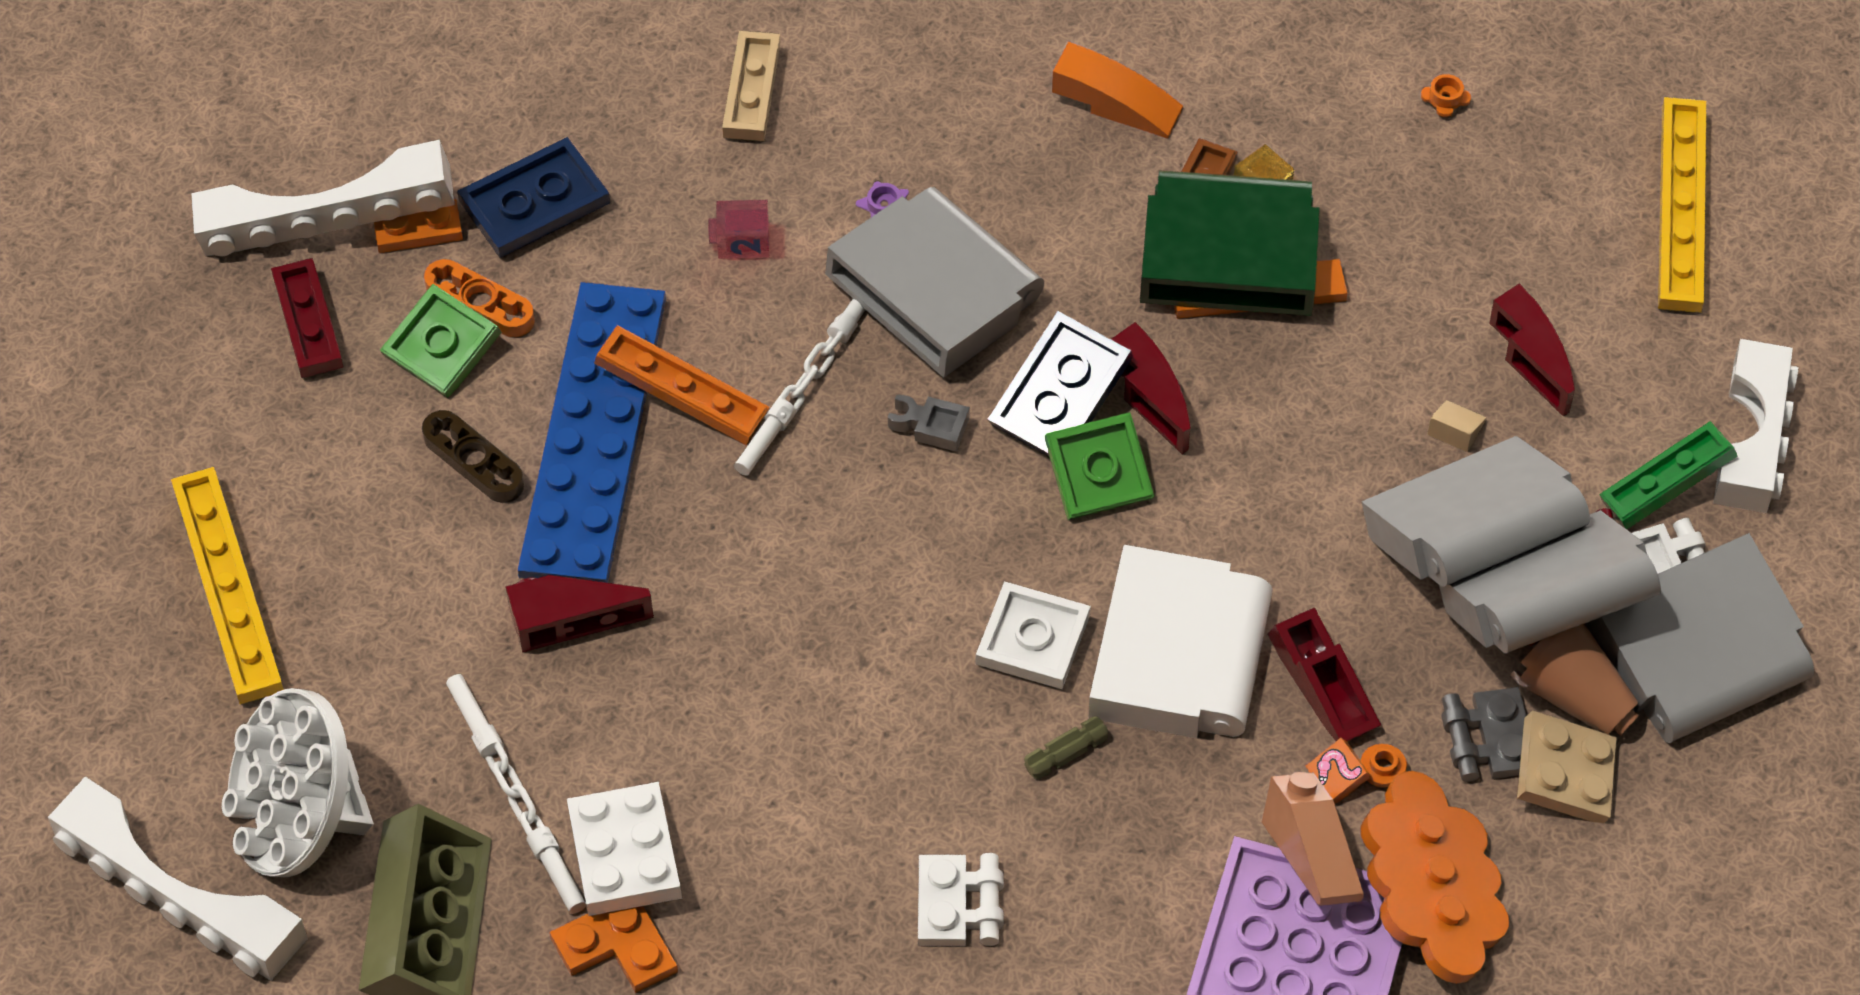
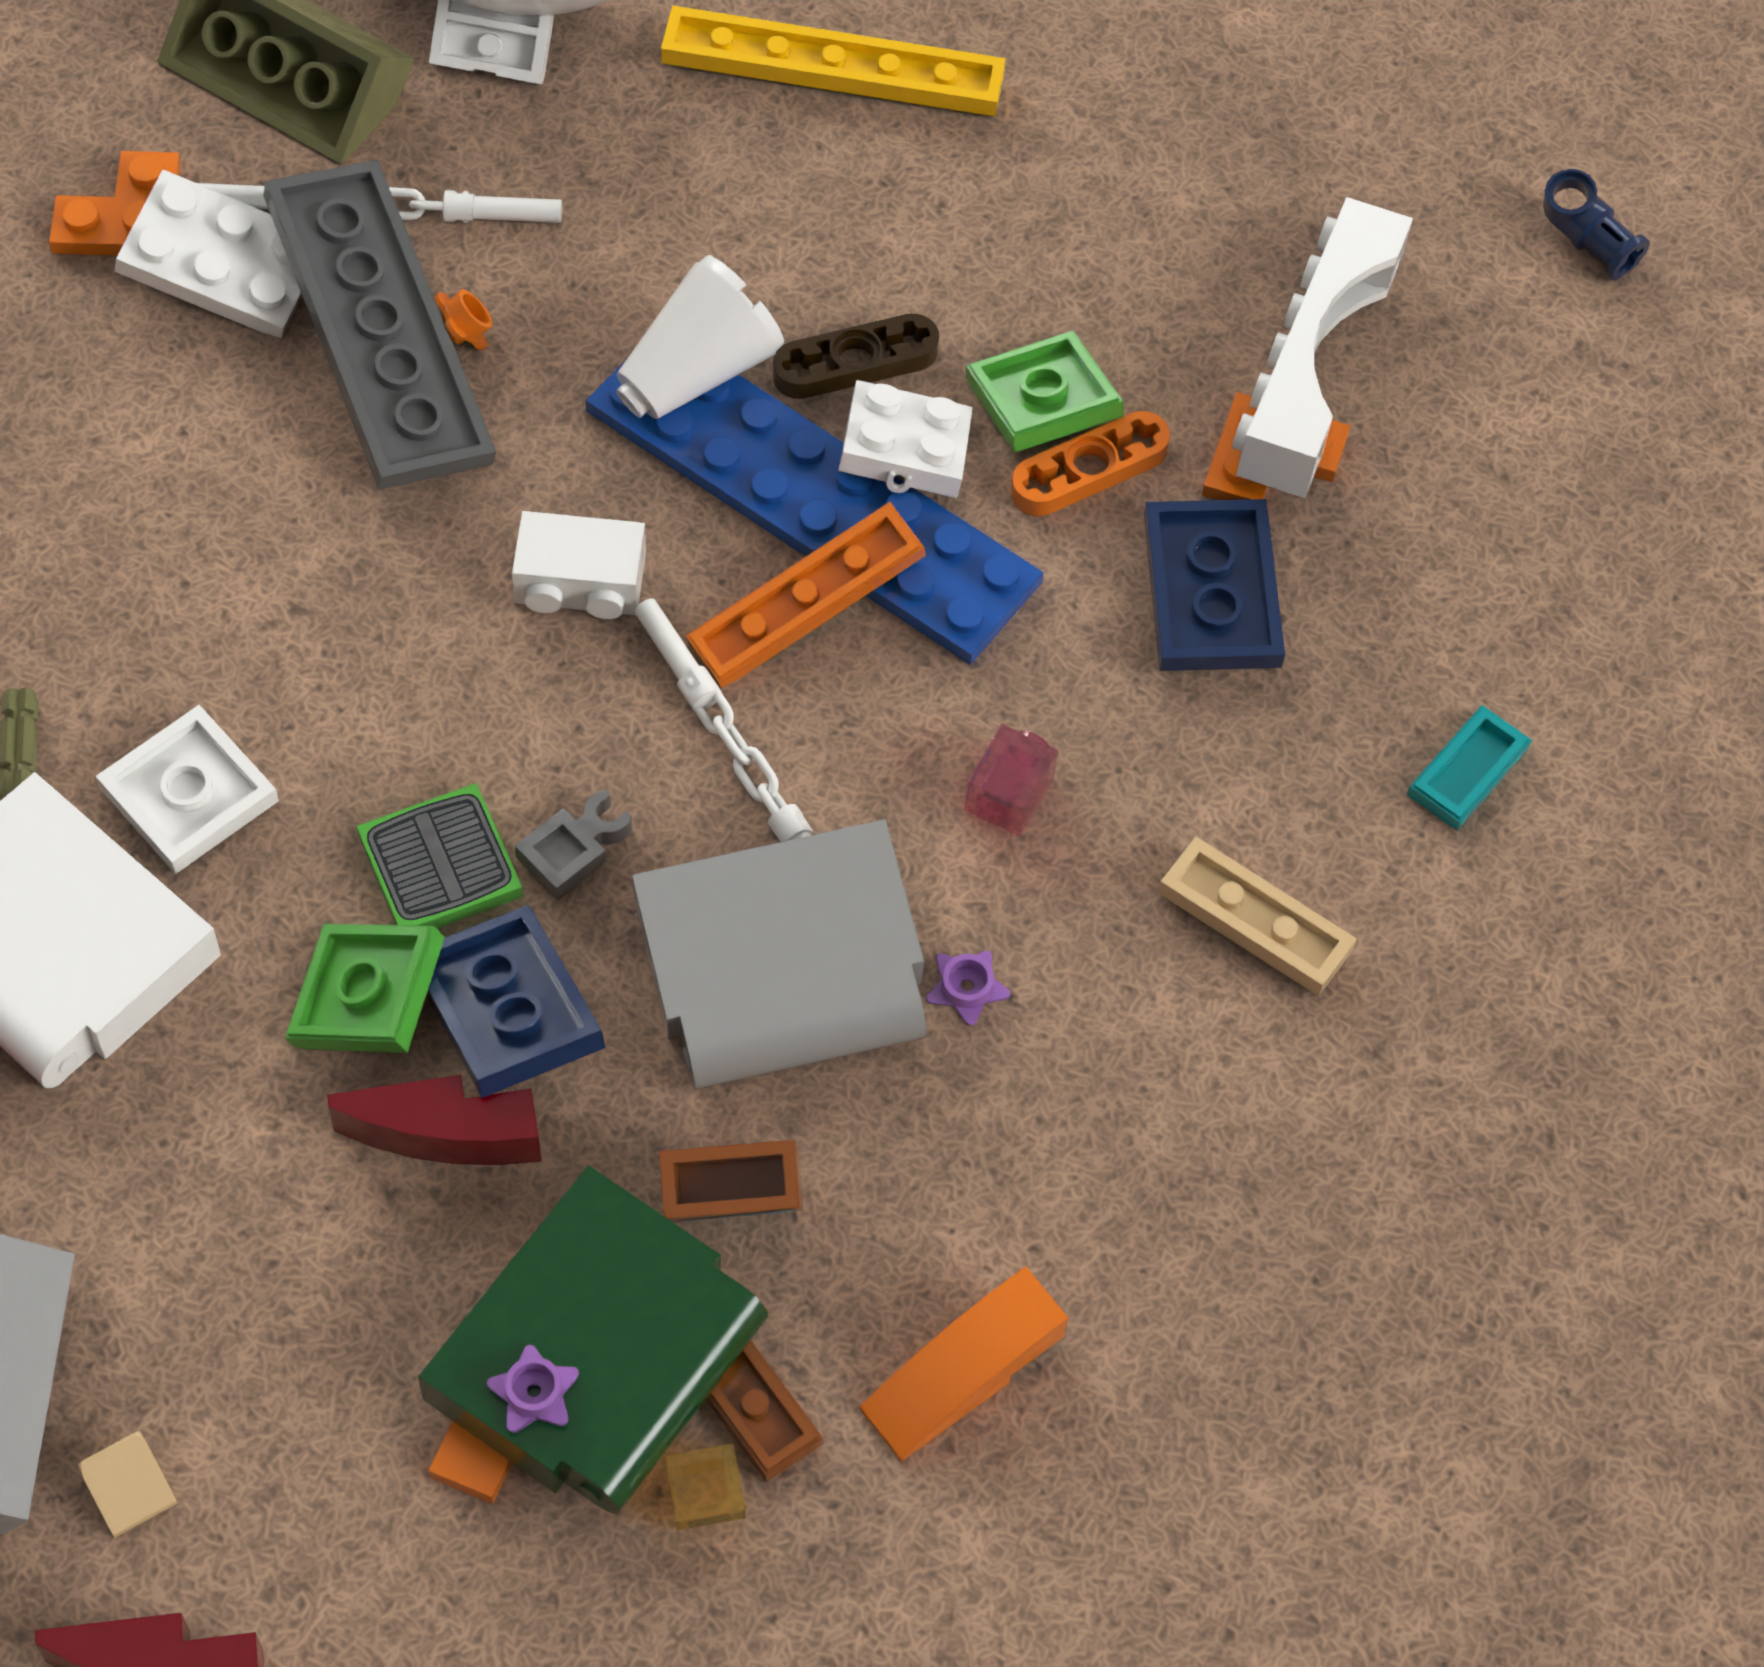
camera: 115 degrees right, 5 degrees up
(128, 115) = (1593, 224): none -> dark blue connector
(307, 318) = (1167, 279): dark red plate -> none
(530, 387) = (906, 436): none -> white plate
(545, 505) = (697, 342): none -> white cone
(567, 608) = (569, 340): dark red slope -> none
(580, 35) = (1469, 767): none -> teal tile
(585, 679) = (465, 318): none -> orange plate
(625, 715) = (379, 324): none -> dark grey plate
(737, 513) = (579, 564): none -> white brick
(986, 486) = (440, 860): none -> tile
(1093, 229) = (731, 1180): none -> dark orange brick
(1289, 223) = (528, 1372): none -> medium lavender plate

